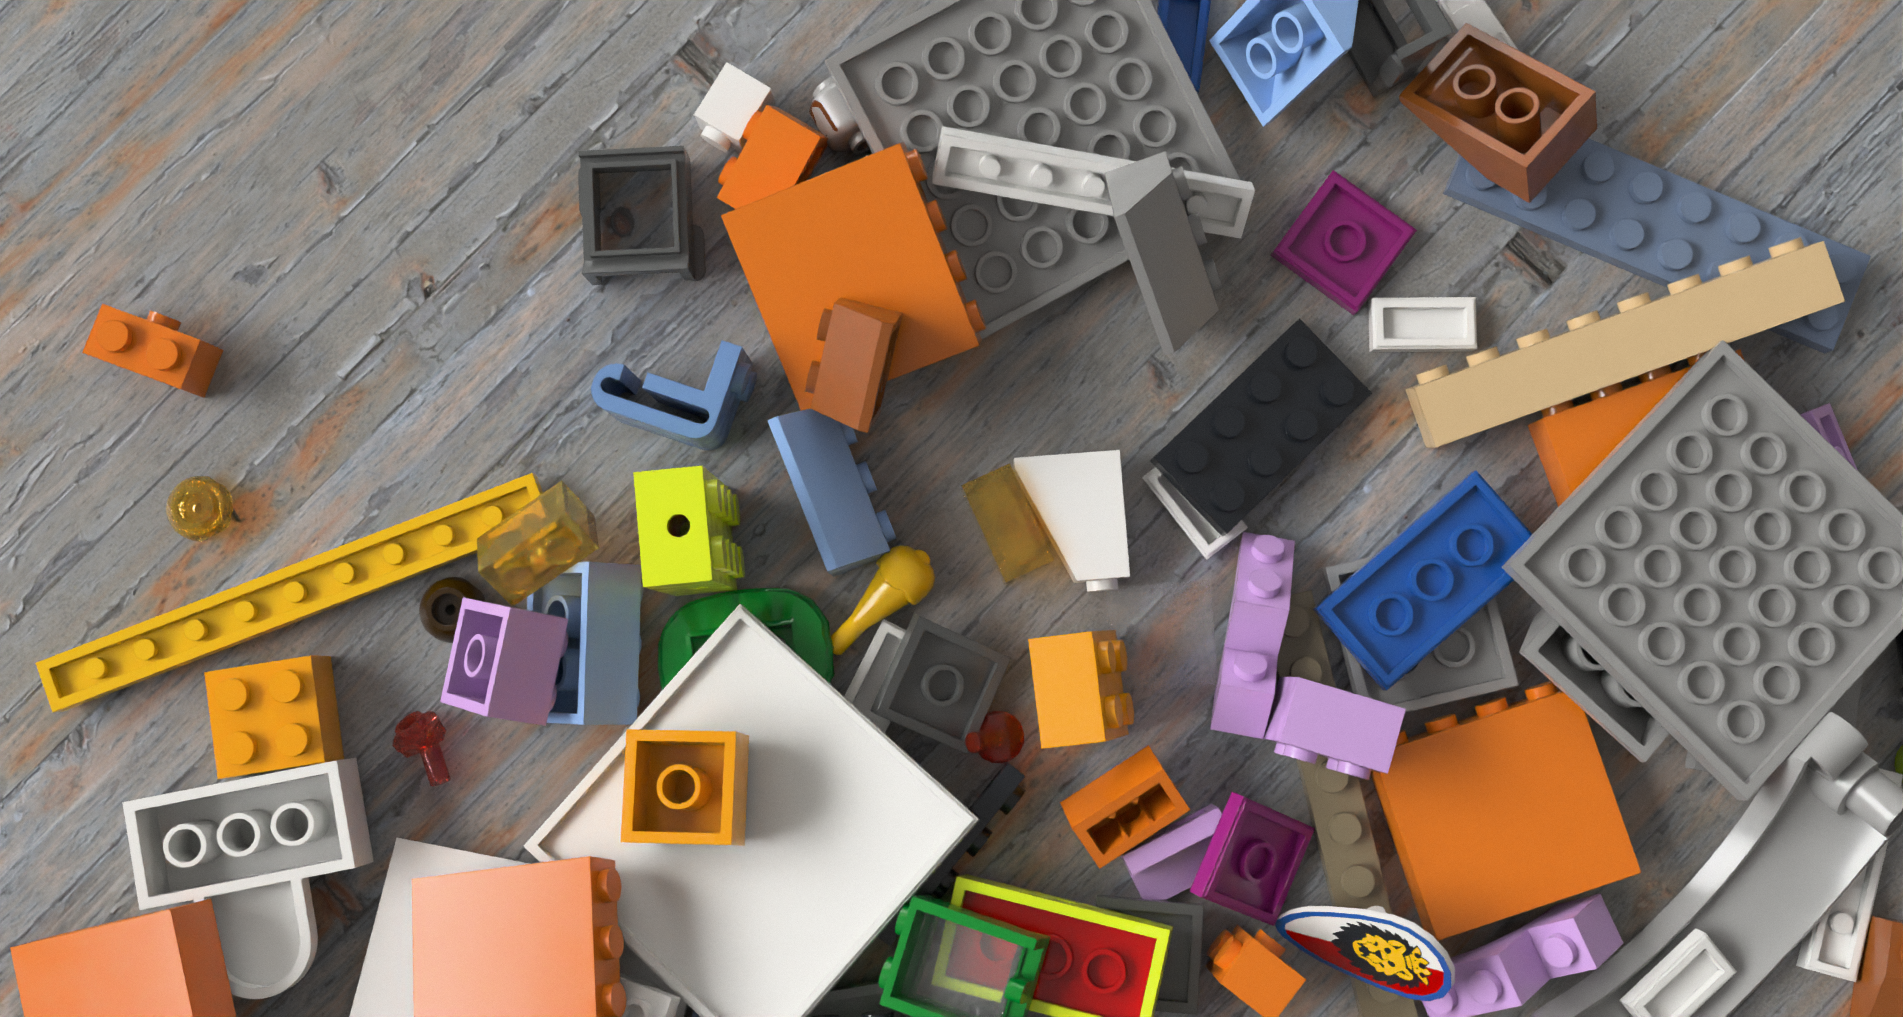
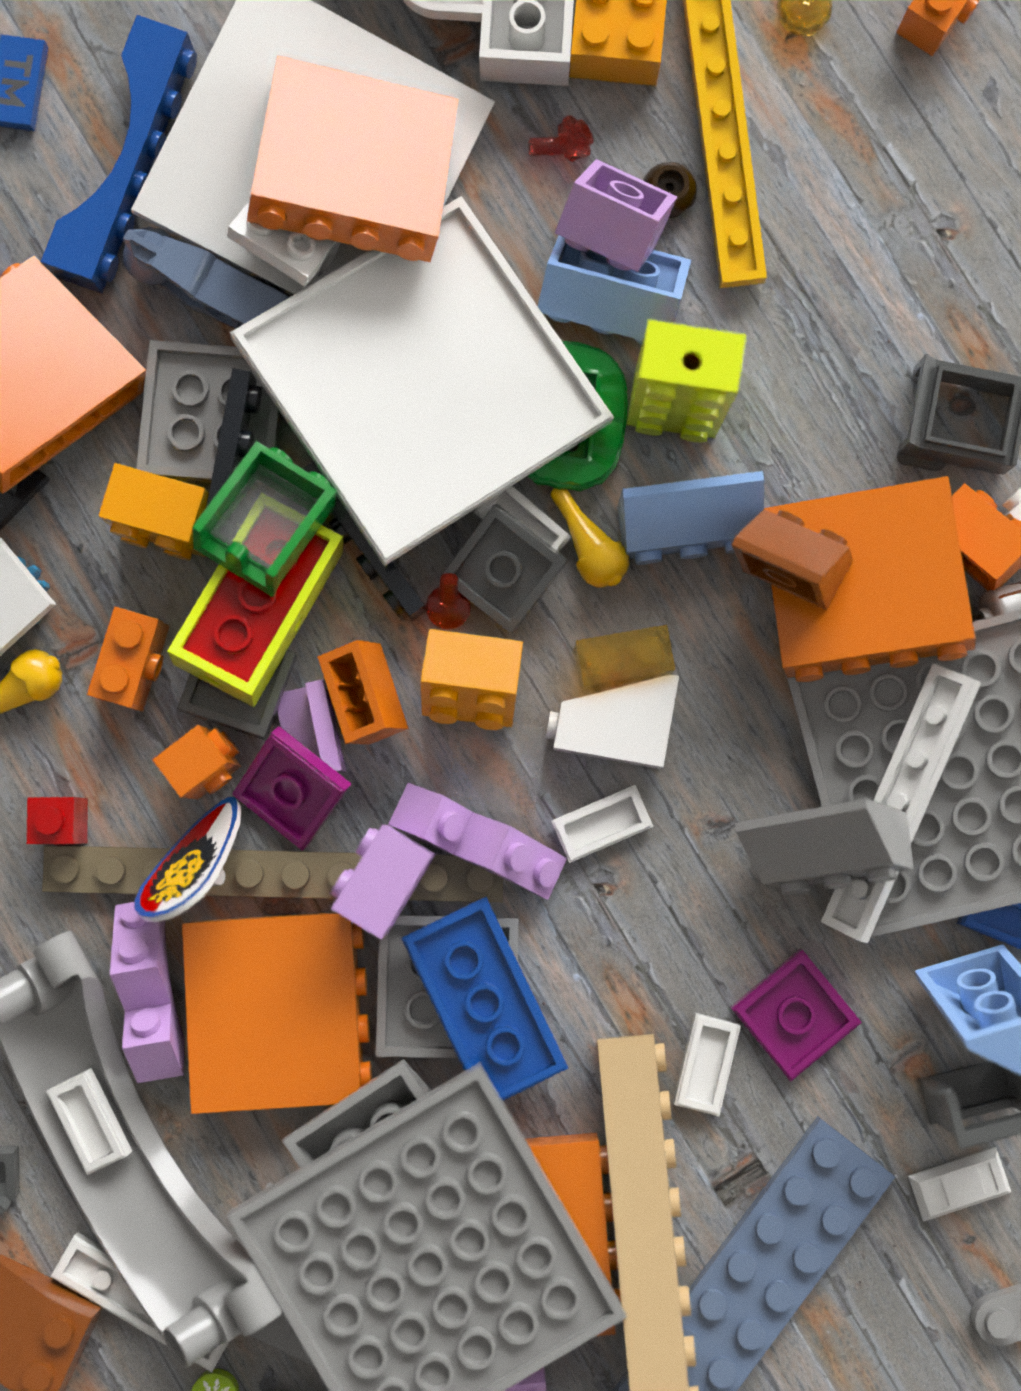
camera: 105 degrees right, 0 degrees up
(537, 543) = (706, 264): clear yellow brick -> none
(685, 787) = (473, 329): light orange brick -> none
(726, 386) = (790, 443): medium blue piece -> none
(1260, 427) = (653, 897): black plate -> none
(1502, 110) = (878, 1182): dark orange slope -> none

